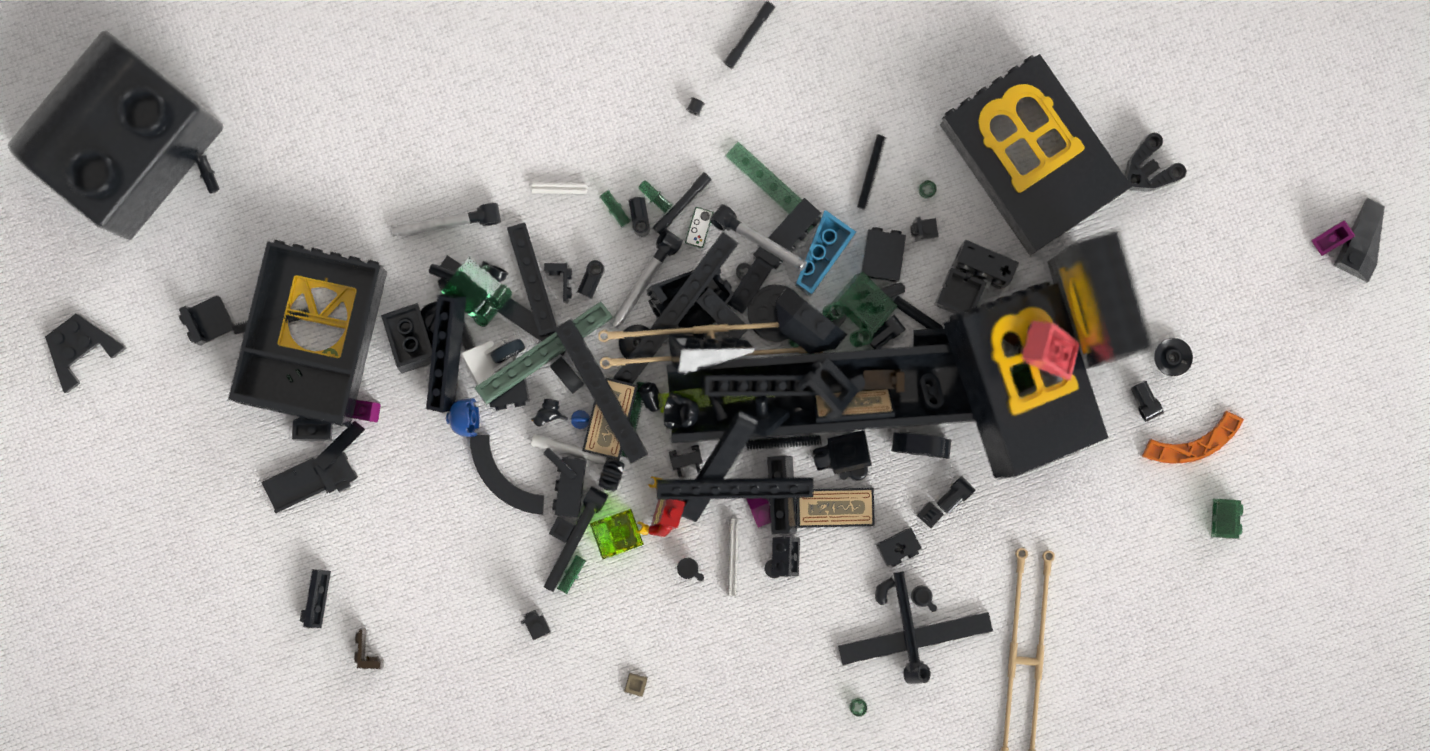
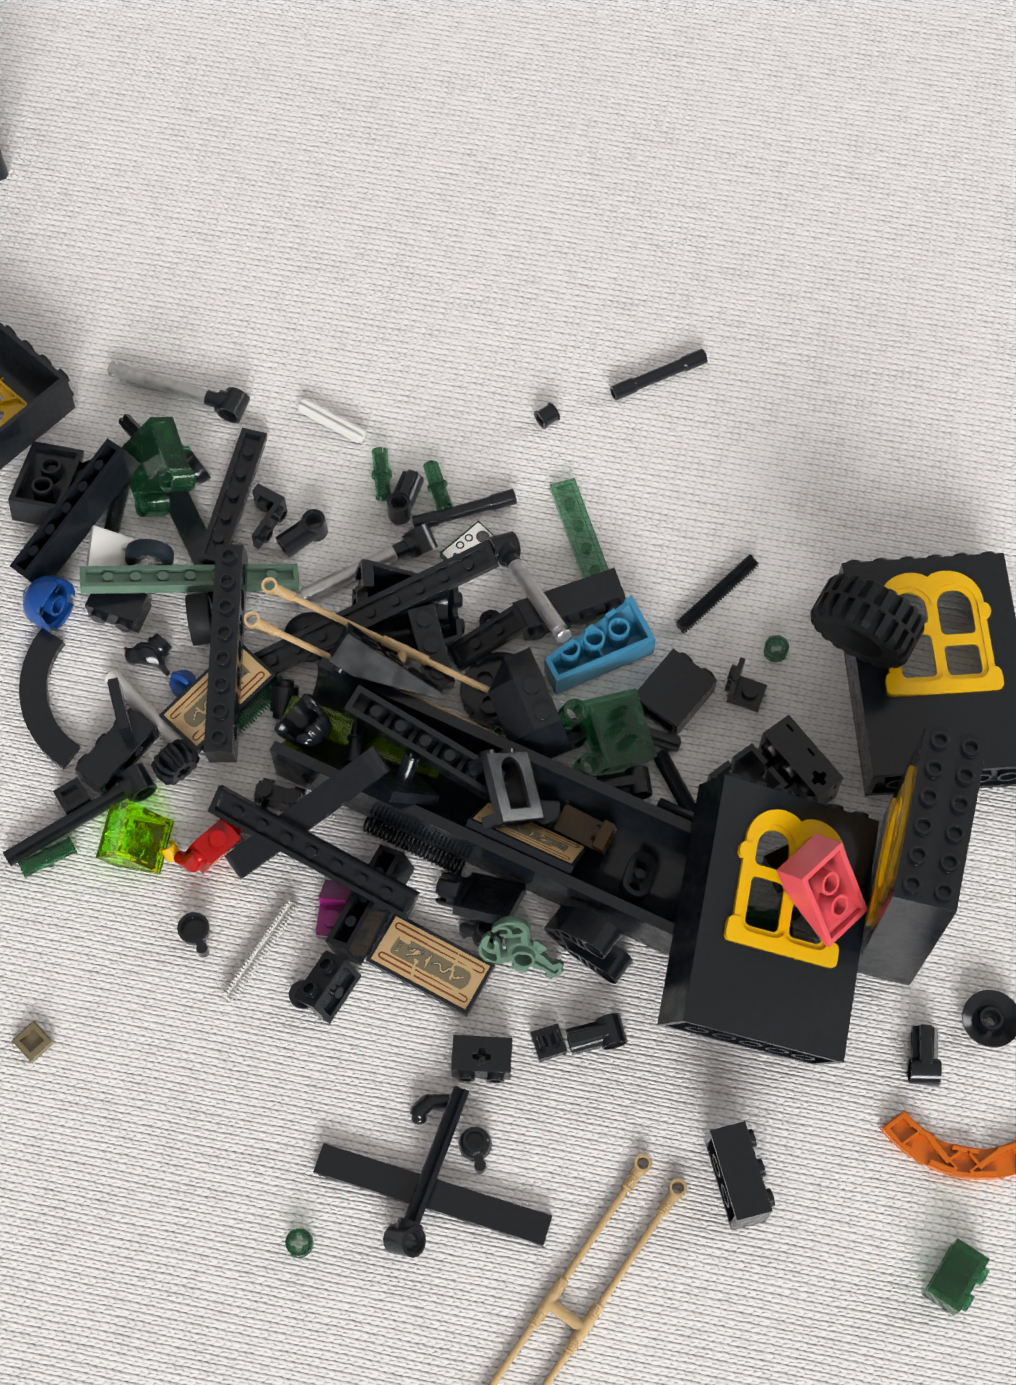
camera: 30 degrees right, 20 degrees down
(883, 472) = (519, 947): none -> sand green animal
(989, 161) = (867, 620): none -> black tyre
(1081, 533) = (739, 1175): none -> black brick

